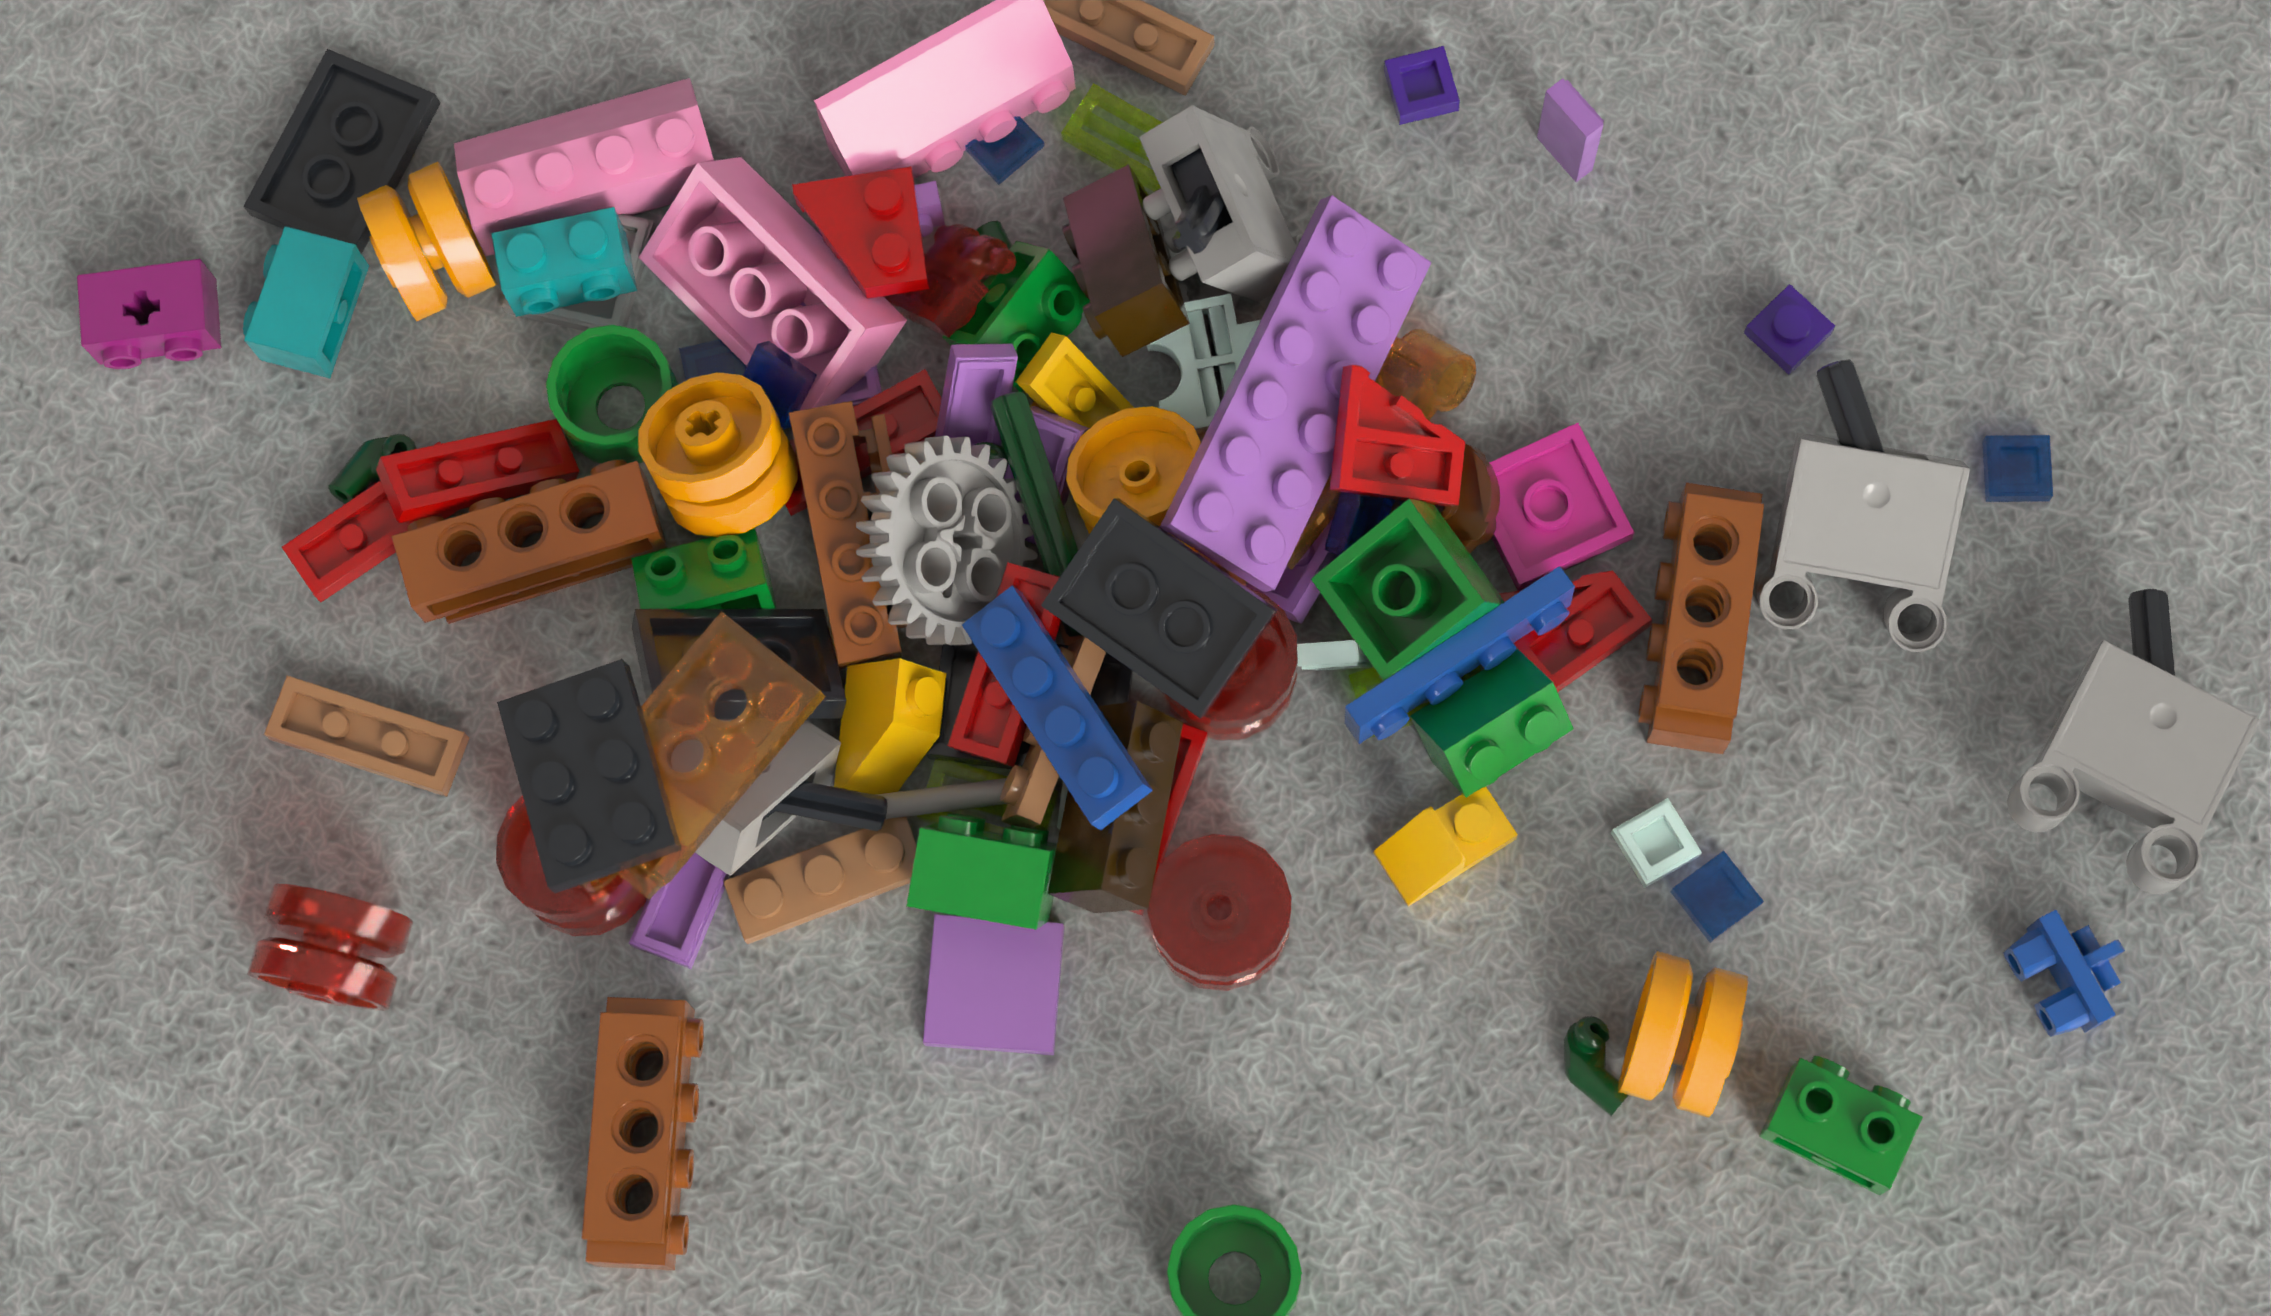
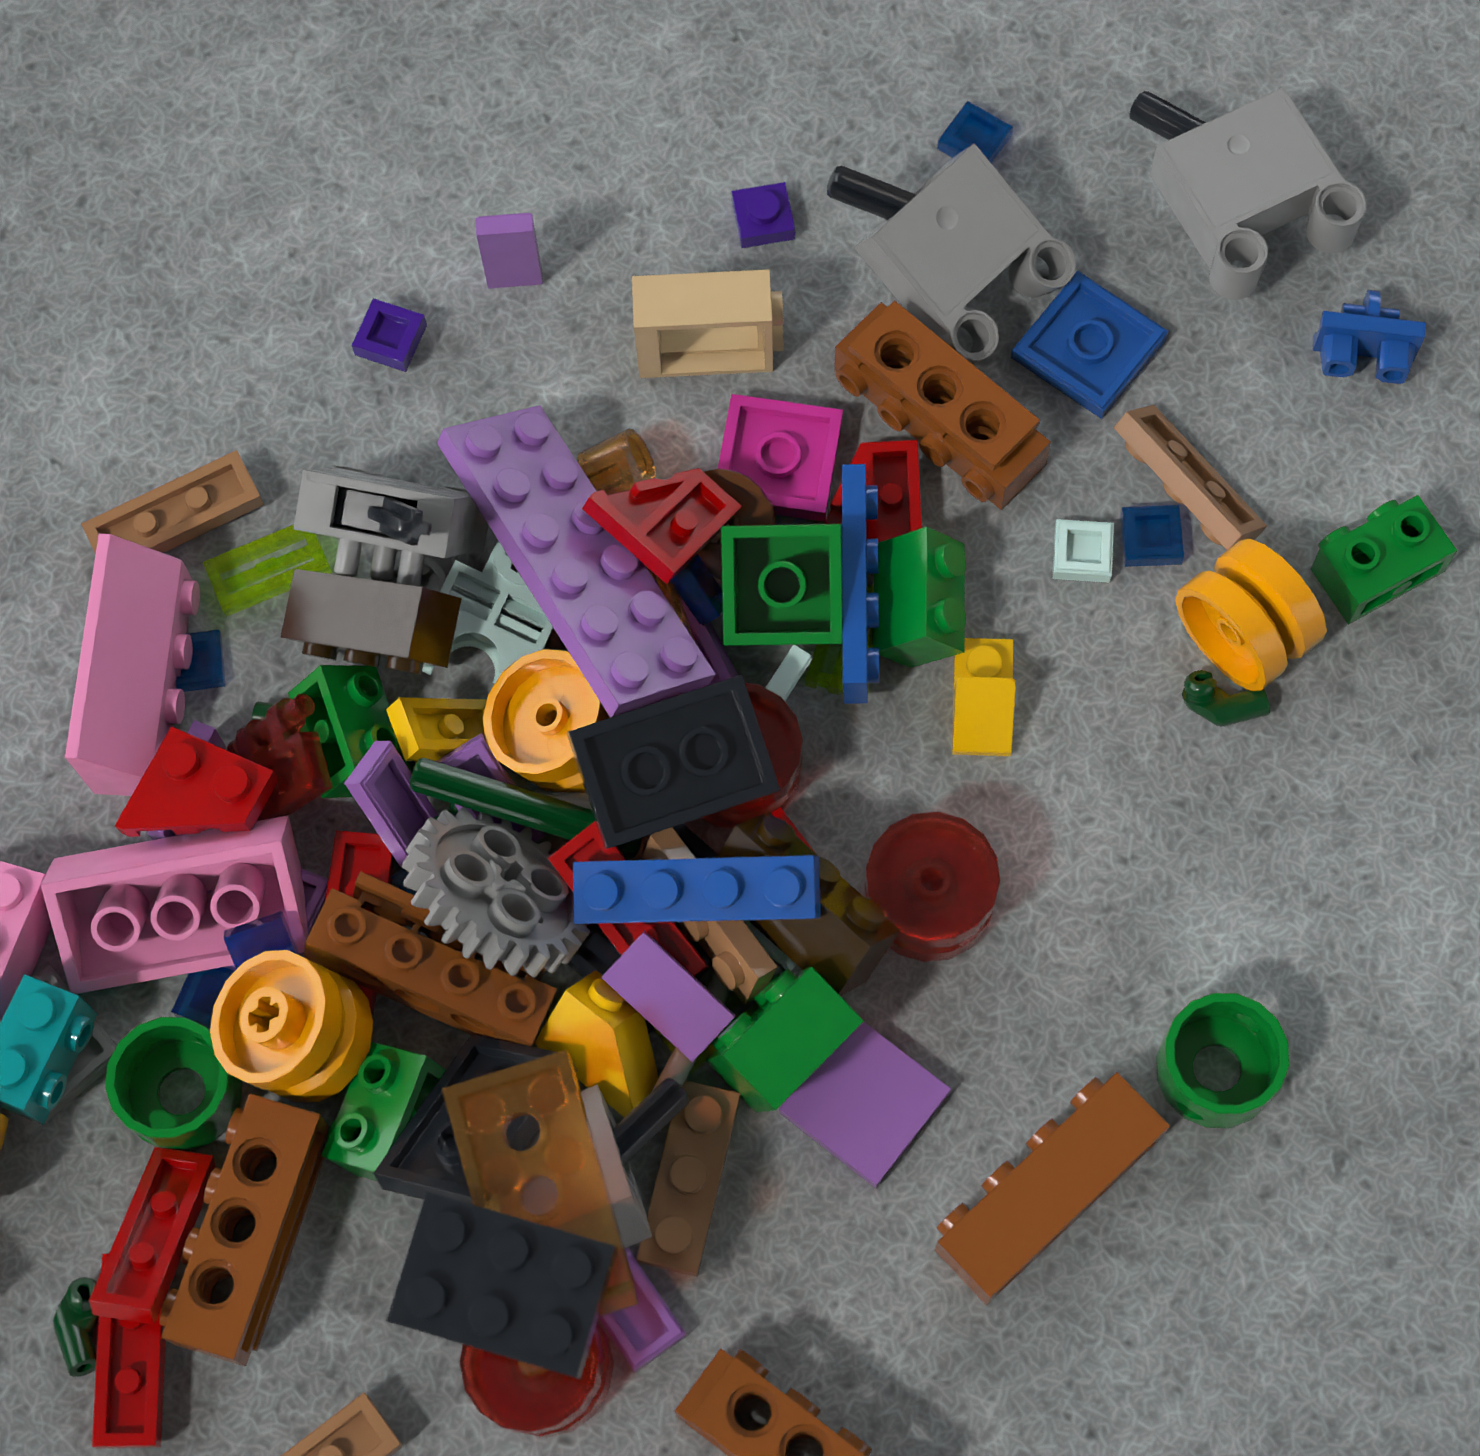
camera: 60 degrees left, 5 degrees down
(956, 749) = (668, 996): none -> medium lavender tile
(1019, 1195) = (1050, 1187): none -> dark orange brick
(1623, 351) = (706, 323): none -> tan window
(1797, 893) = (1188, 477): none -> medium nougat plate
(1875, 715) = (1089, 344): none -> blue tile

